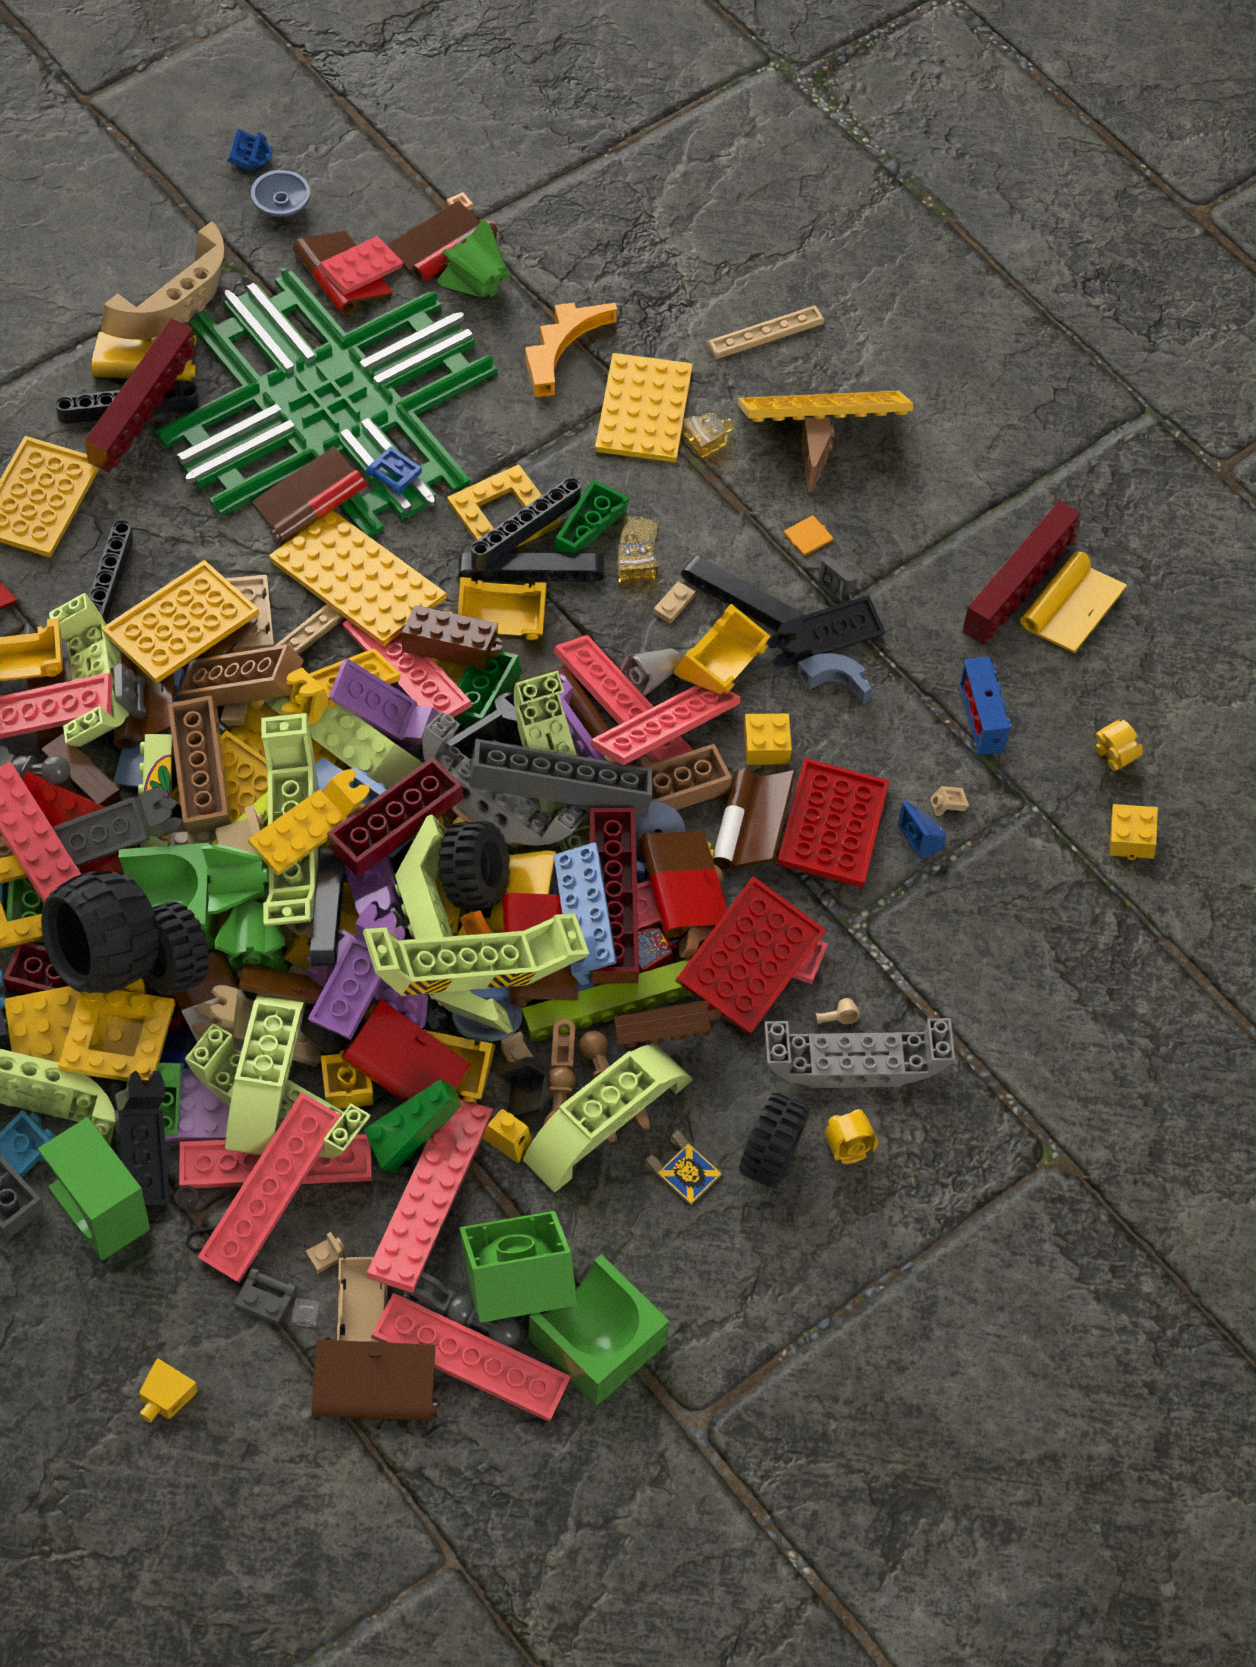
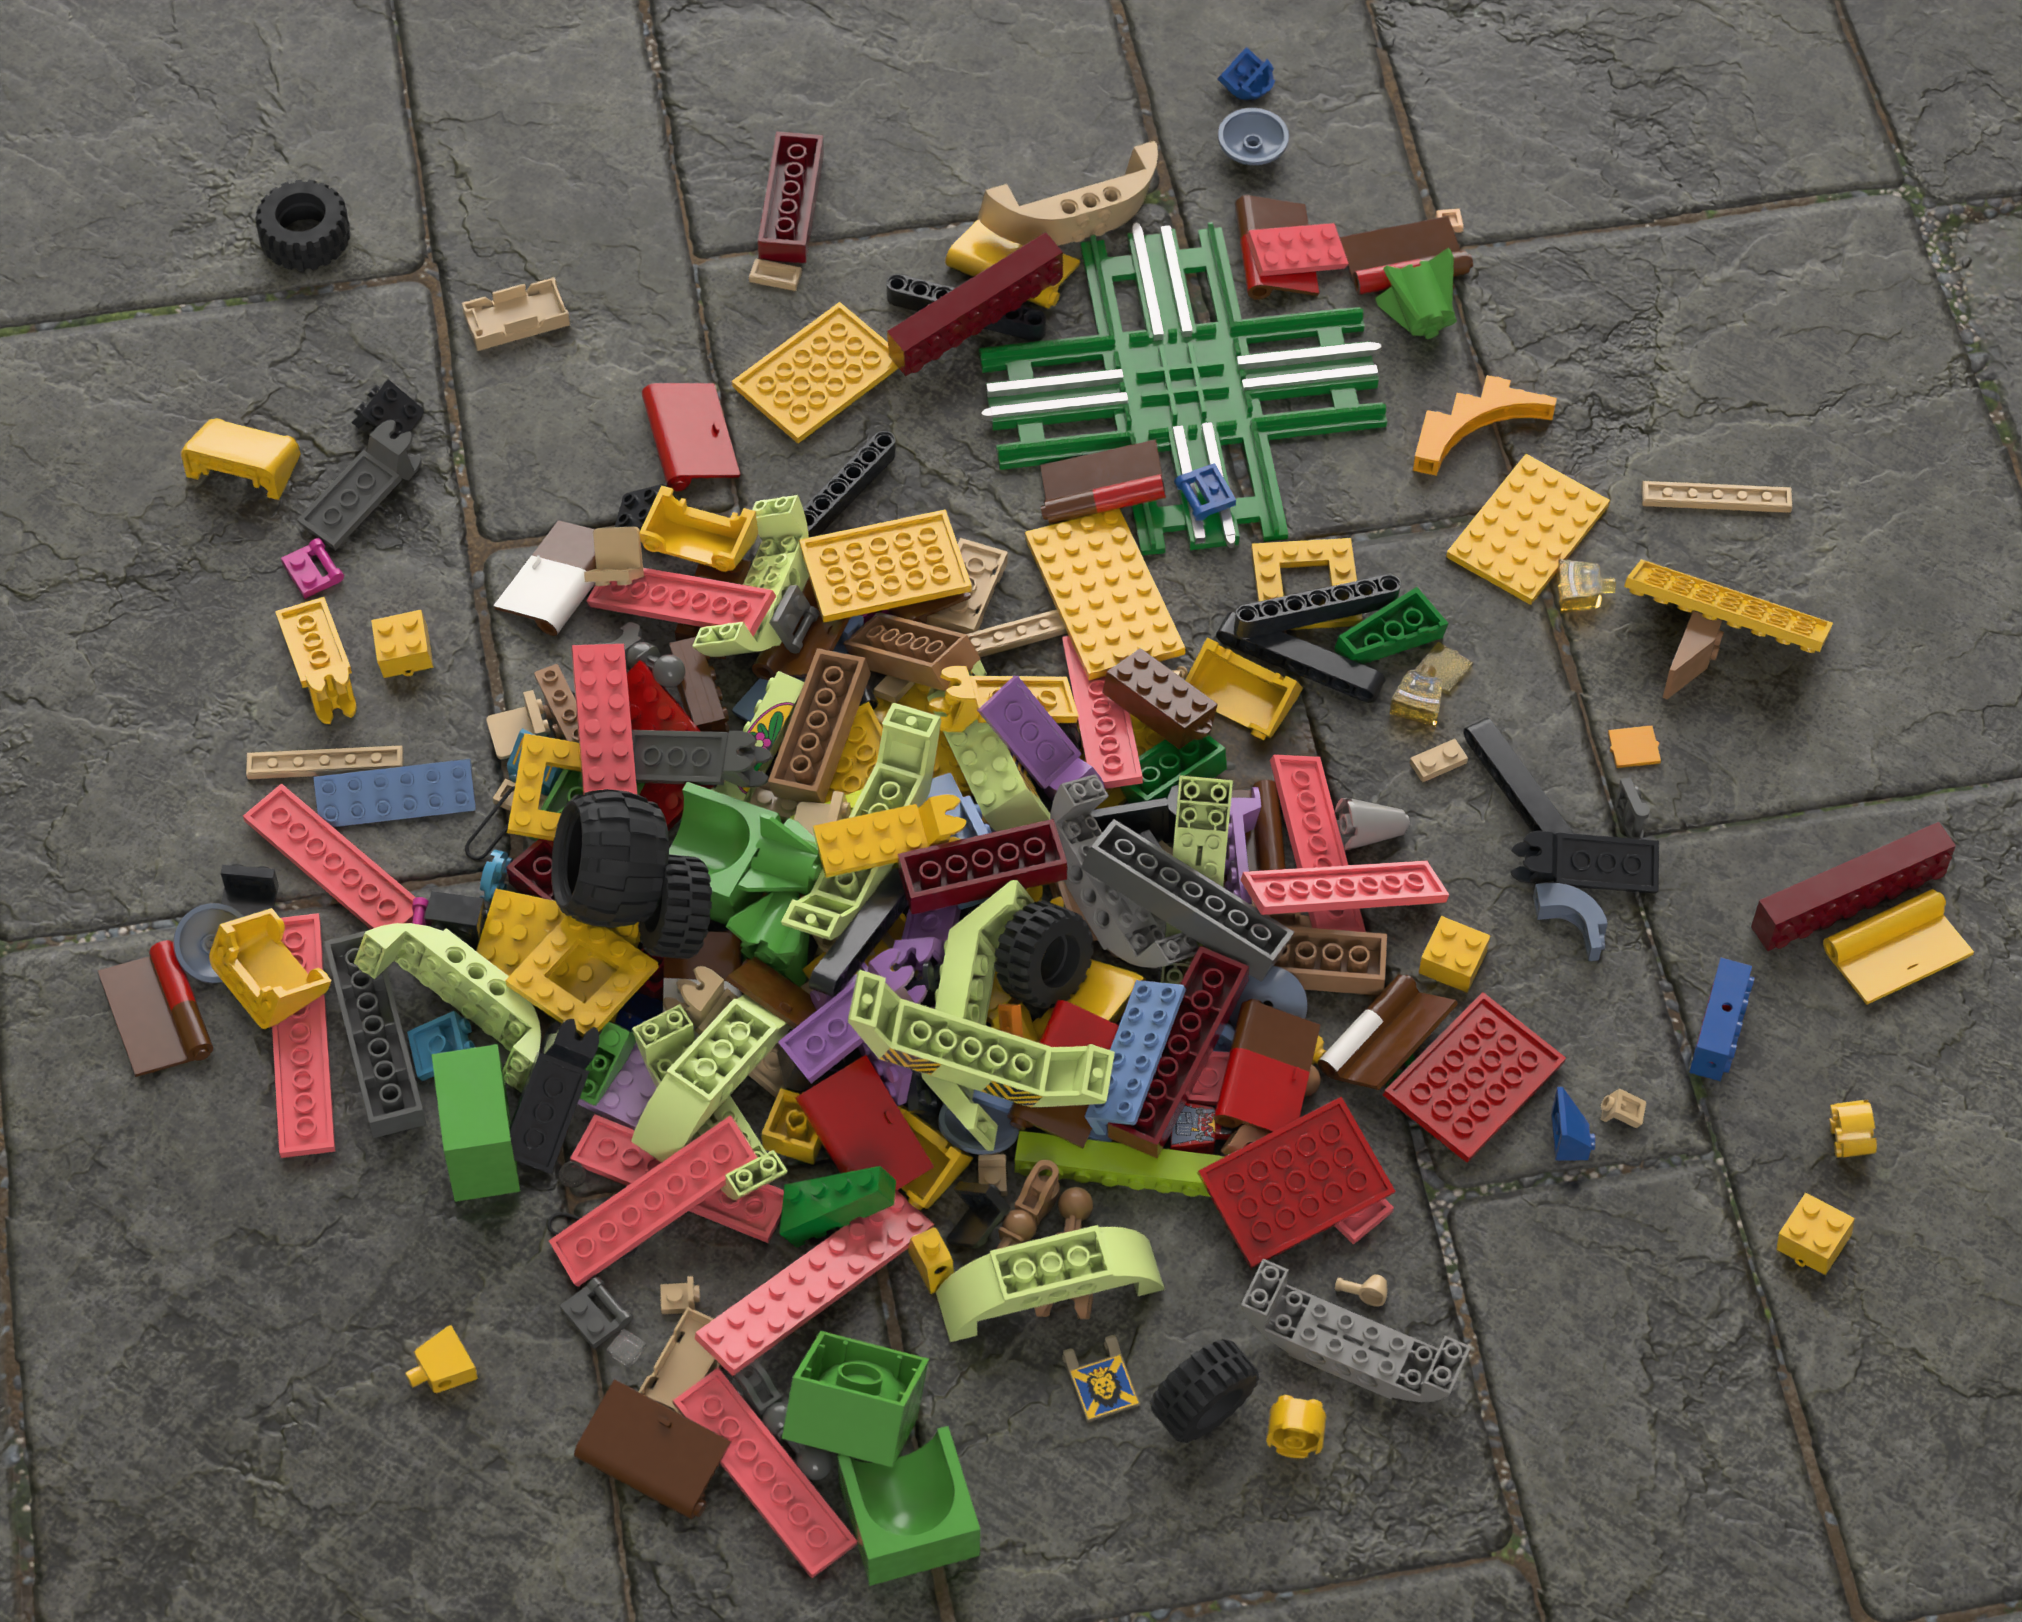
camera: 30 degrees right, 0 degrees up
(665, 1022) = (1159, 1213): reddish brown piece -> none
(723, 652) = (1455, 838): yellow windscreen -> none

